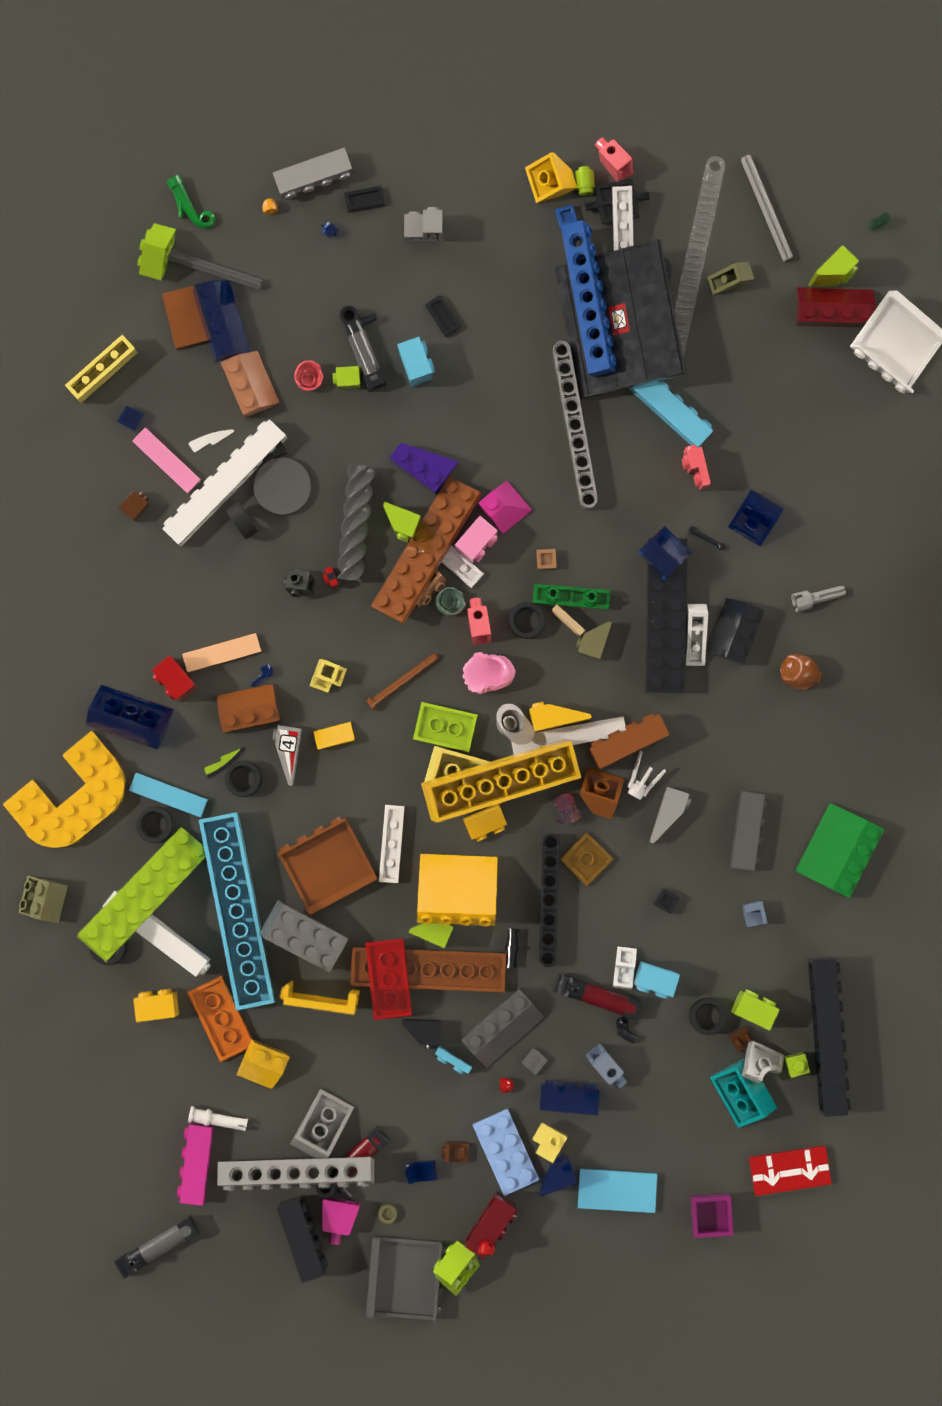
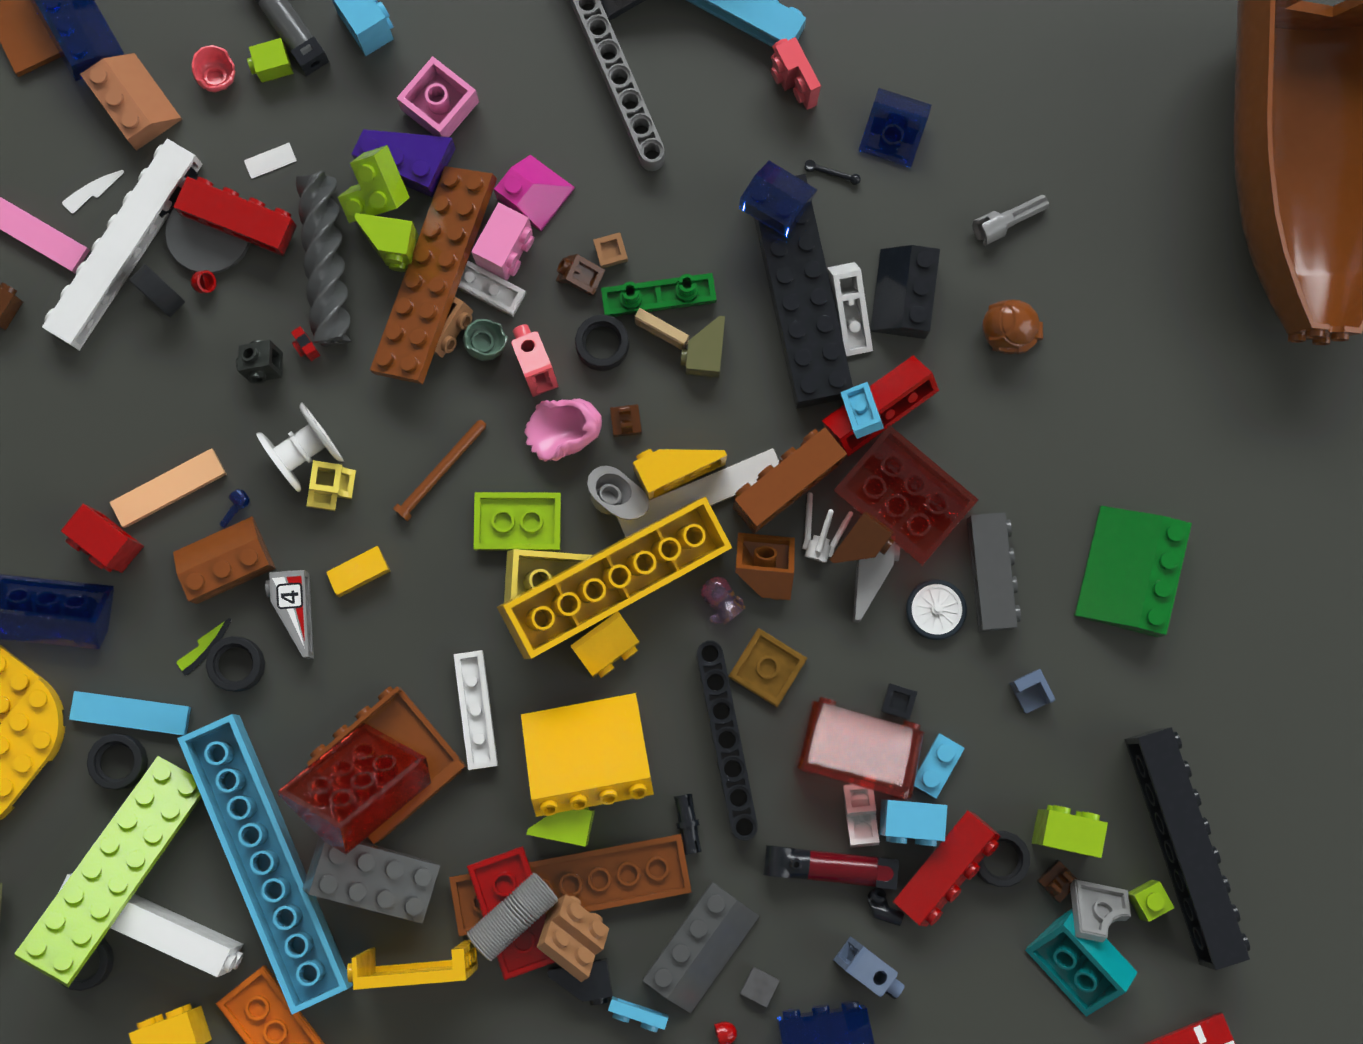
camera: 15 degrees left, 5 degrees down
(272, 519) = (203, 281): none -> red hinge
(303, 481) = (235, 215): none -> red brick
(307, 877) = (356, 786): none -> clear red slope
(314, 647) = (299, 447): none -> white piece
(332, 445) = (270, 160): none -> white sticker
(382, 984) = (508, 918): none -> light grey piece
(401, 486) = (378, 188): none -> lime brick
(423, 1002) = (572, 936): none -> medium nougat plate
(454, 431) = (438, 99): none -> bright pink brick
(522, 570) = (580, 273): none -> reddish brown bracket
(530, 675) = (625, 420): none -> reddish brown tile
(633, 926) = (860, 749): none -> clear red windscreen
(668, 793) = (864, 540): none -> reddish brown slope
(671, 1014) = (947, 869): none -> red brick
(681, 947) = (937, 765): none -> medium azure plate
(686, 707) = (862, 410): none -> medium azure plate
(700, 704) = (894, 396): none -> red brick
(702, 768) = (906, 494): none -> clear red slope
(705, 846) = (936, 609): none -> white wheel

